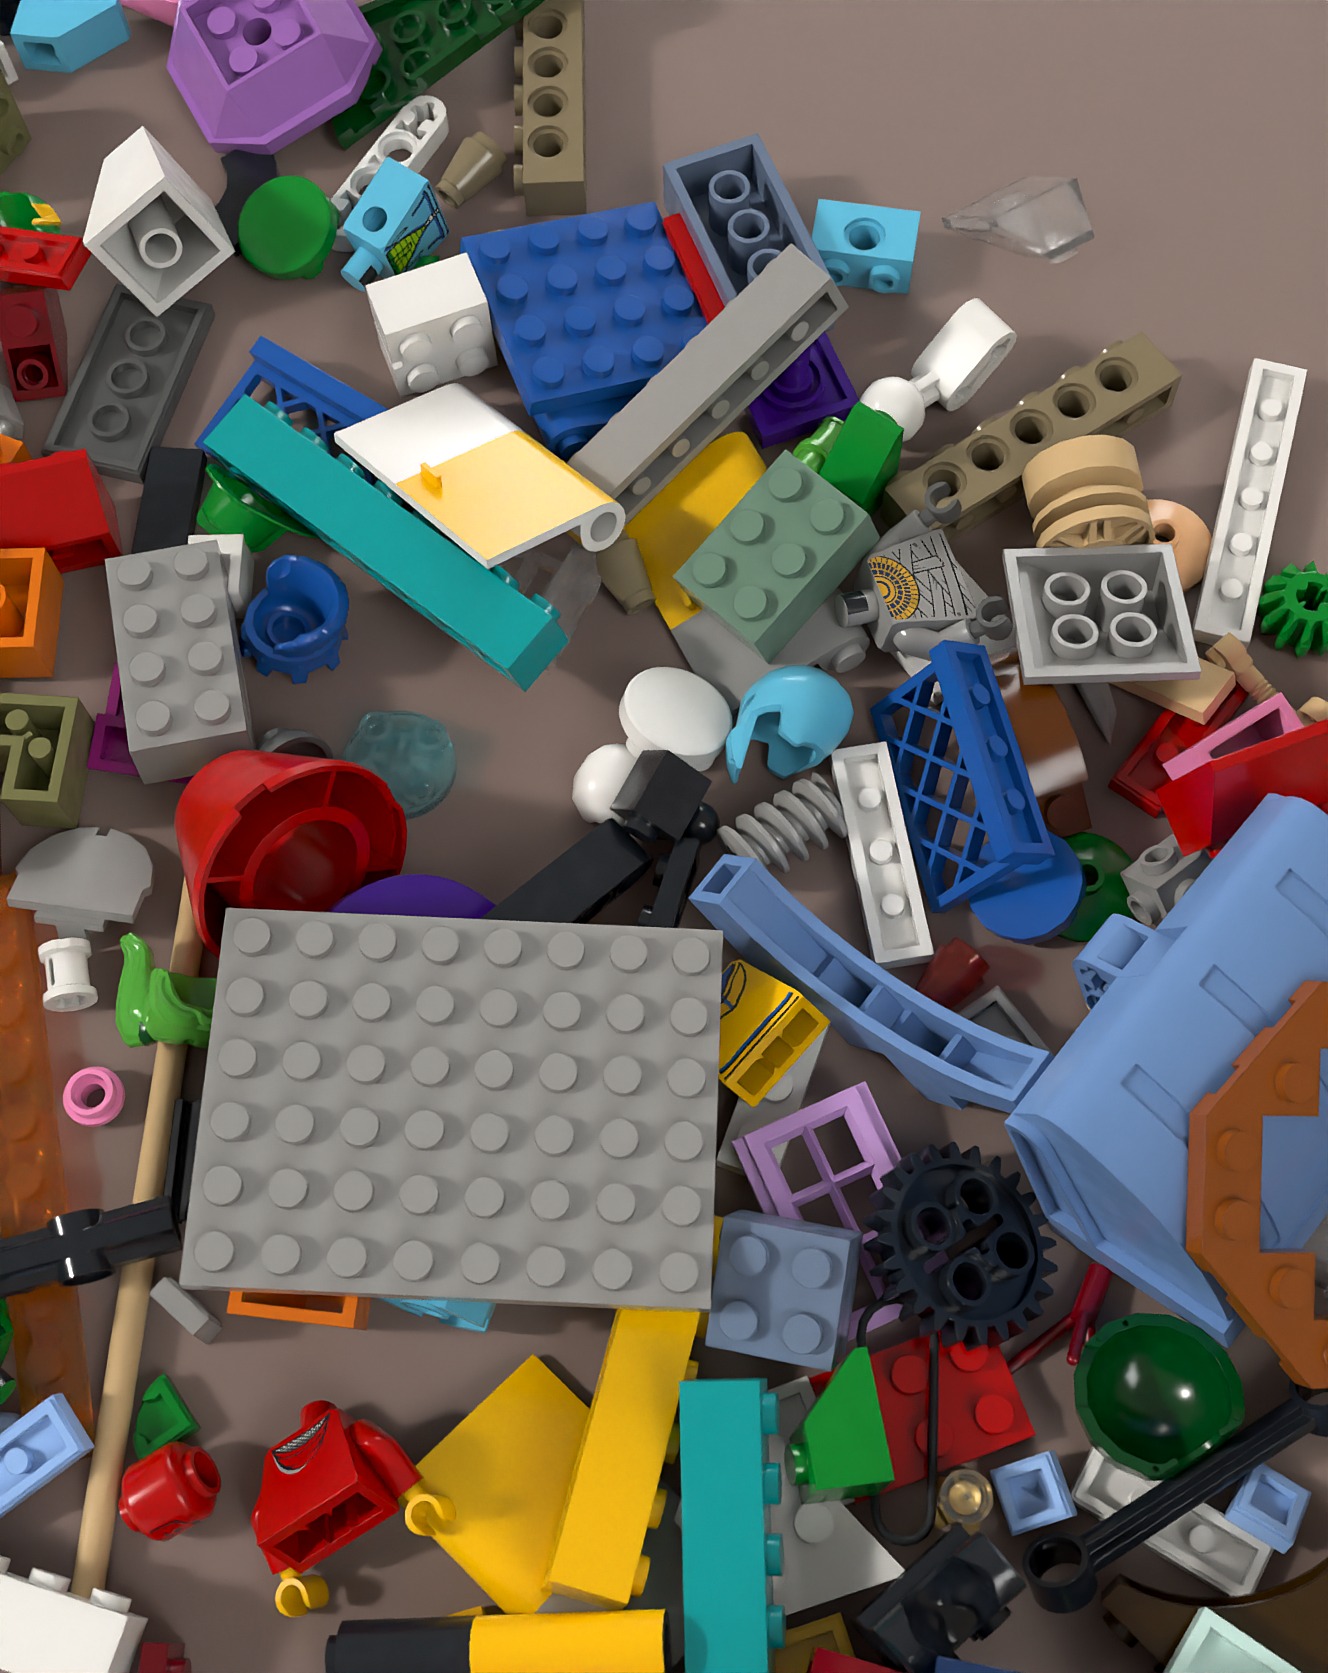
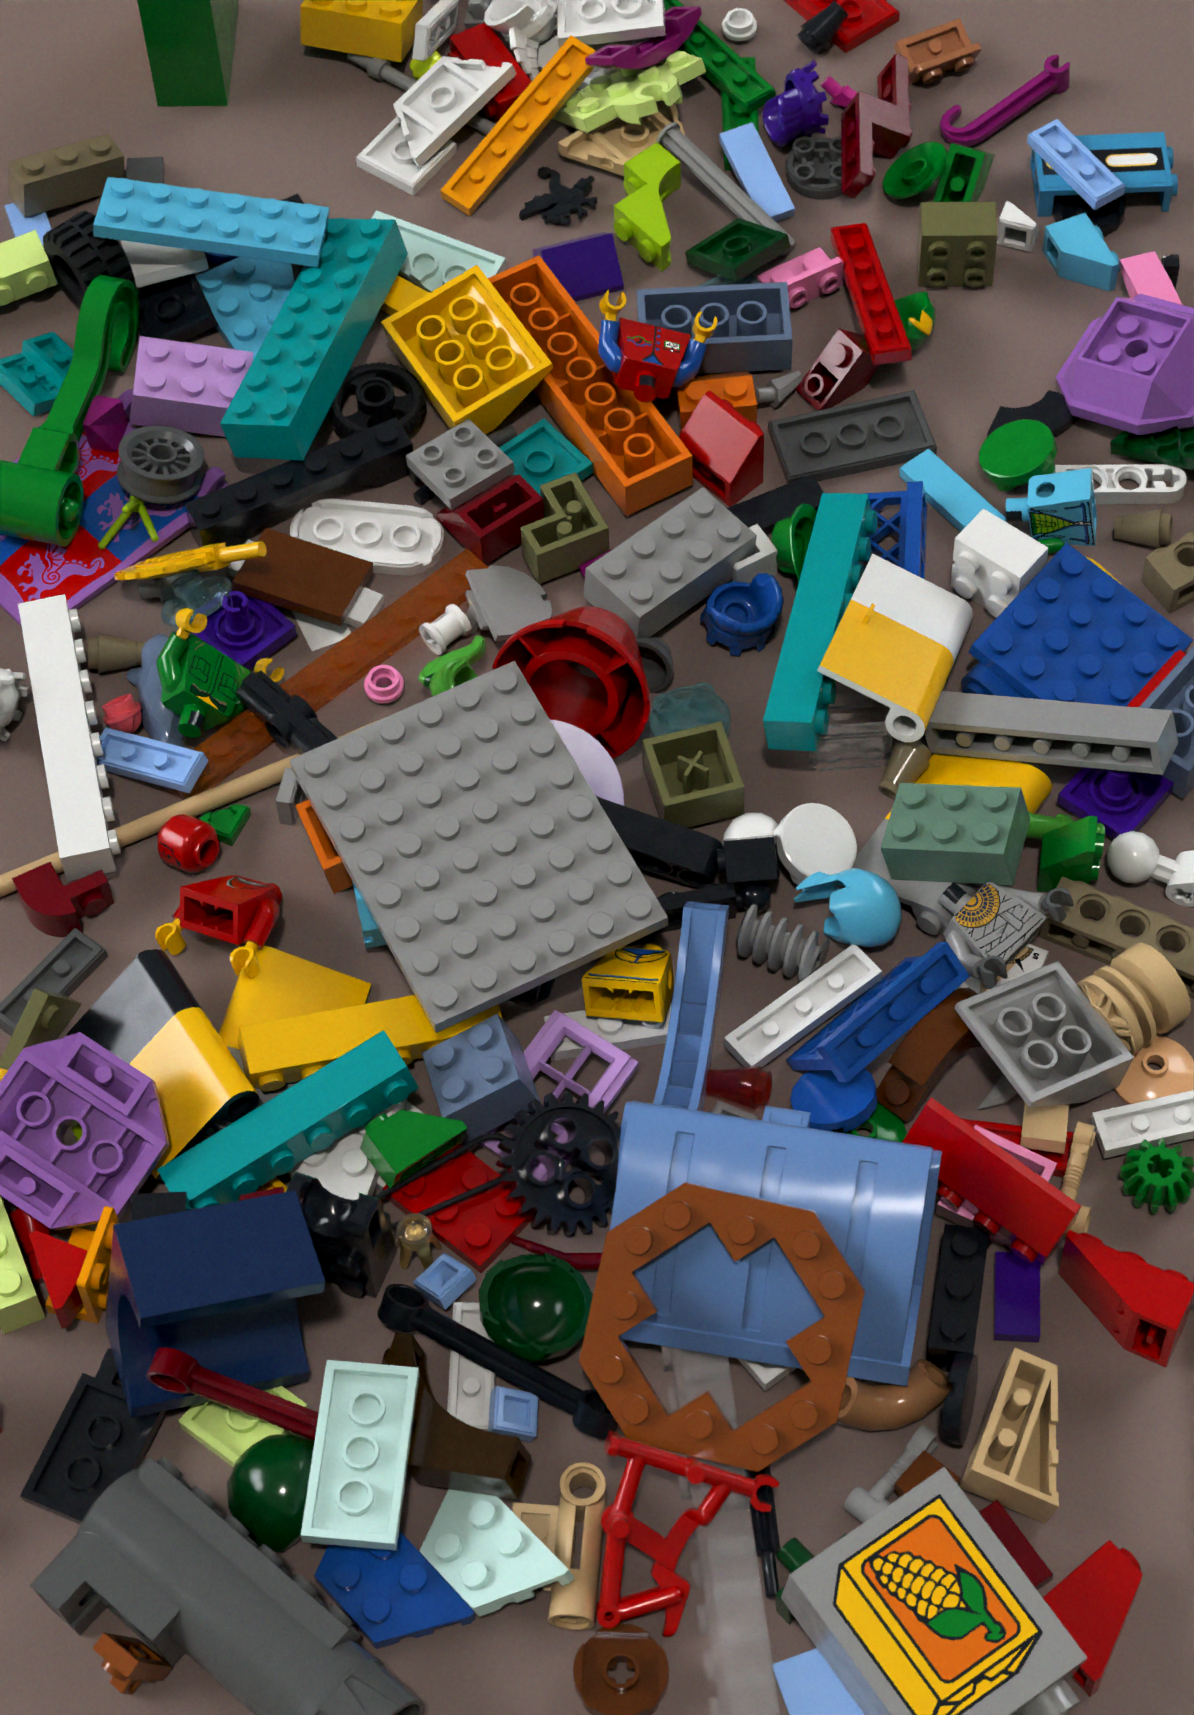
camera: 60 degrees right, 10 degrees down
(153, 224) = (957, 379): white slope -> none
(292, 324) = (946, 490): none -> medium azure tile
(493, 799) = (693, 775): none -> olive brick

